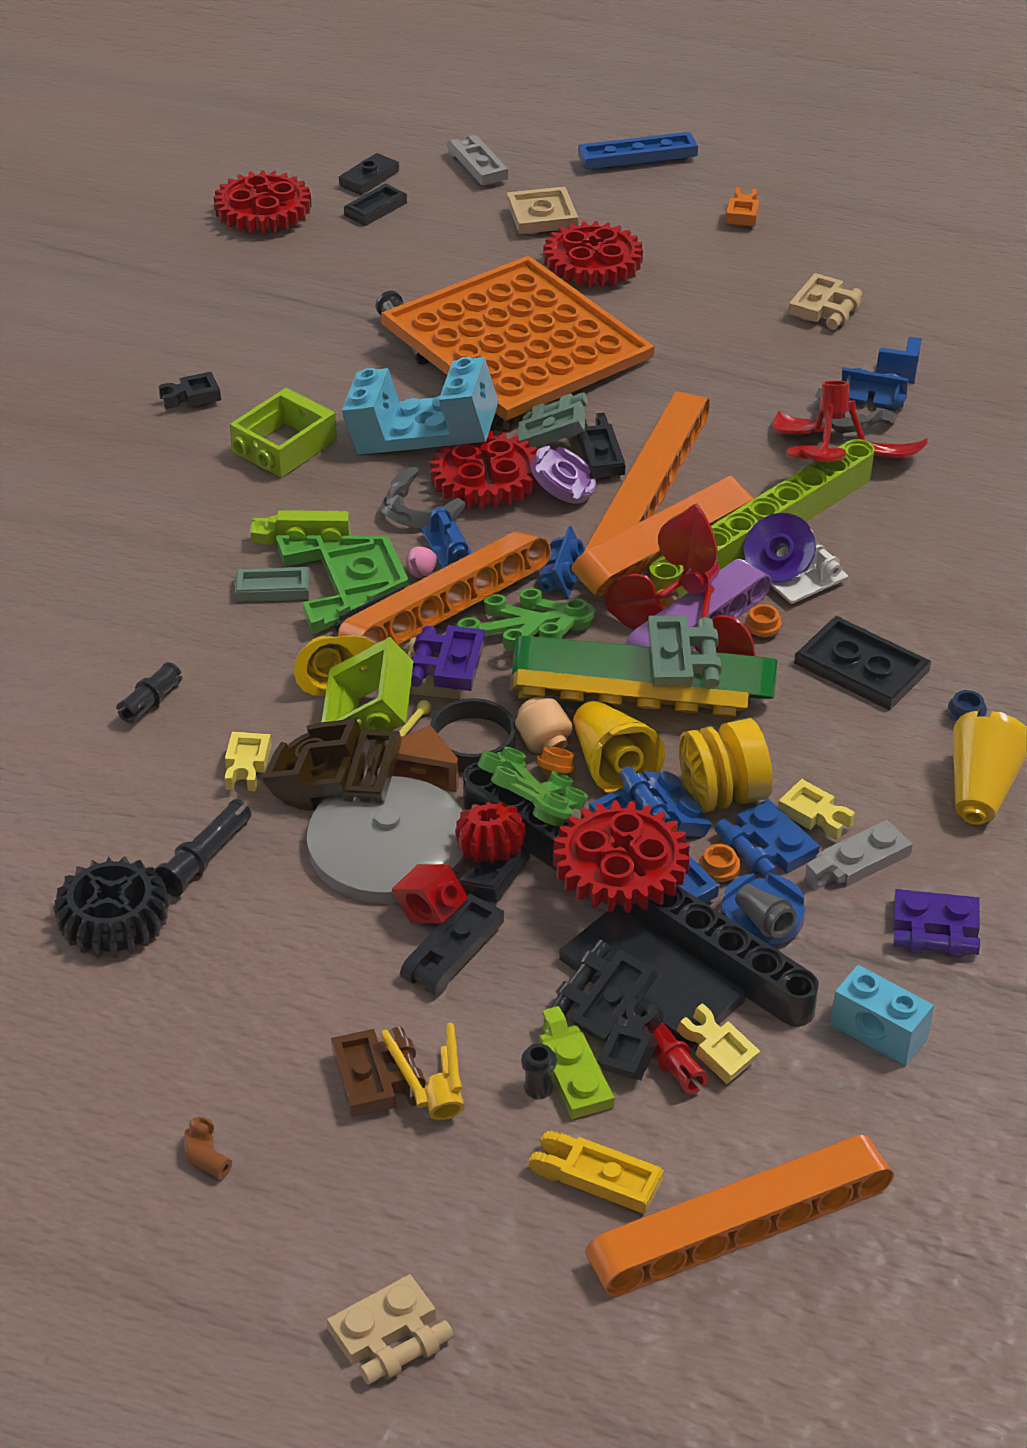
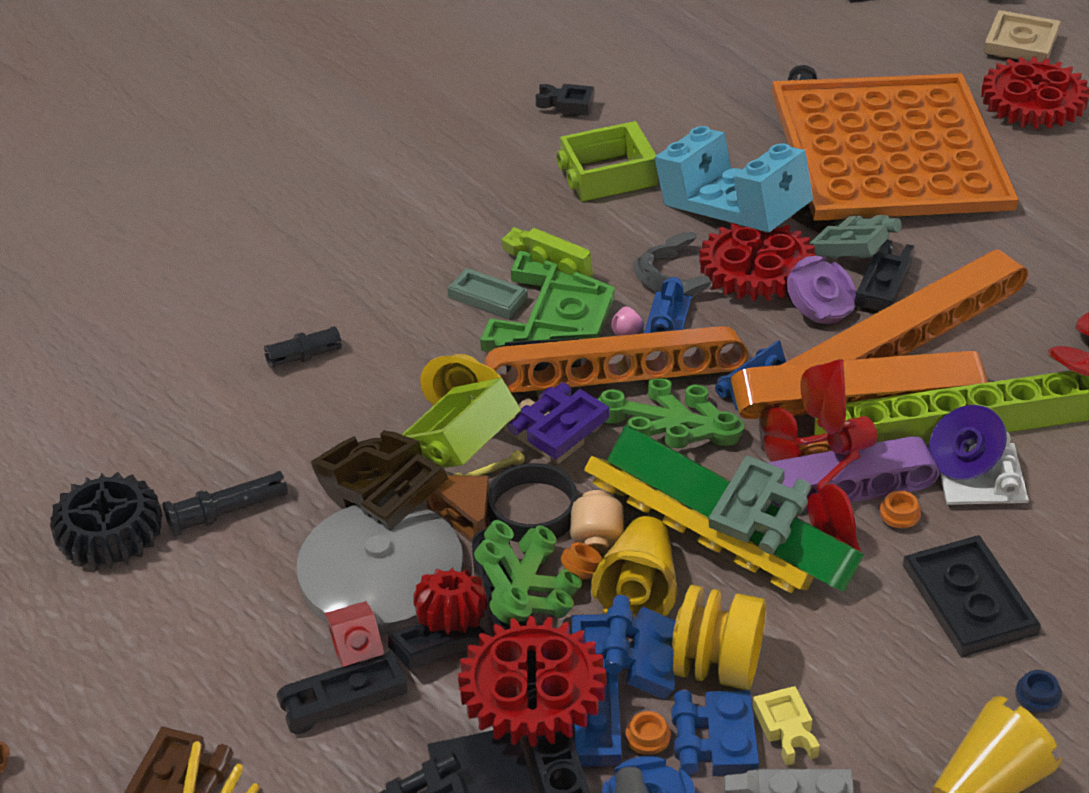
camera: 35 degrees right, 0 degrees up
(246, 756) = (323, 436): light yellow plate -> none

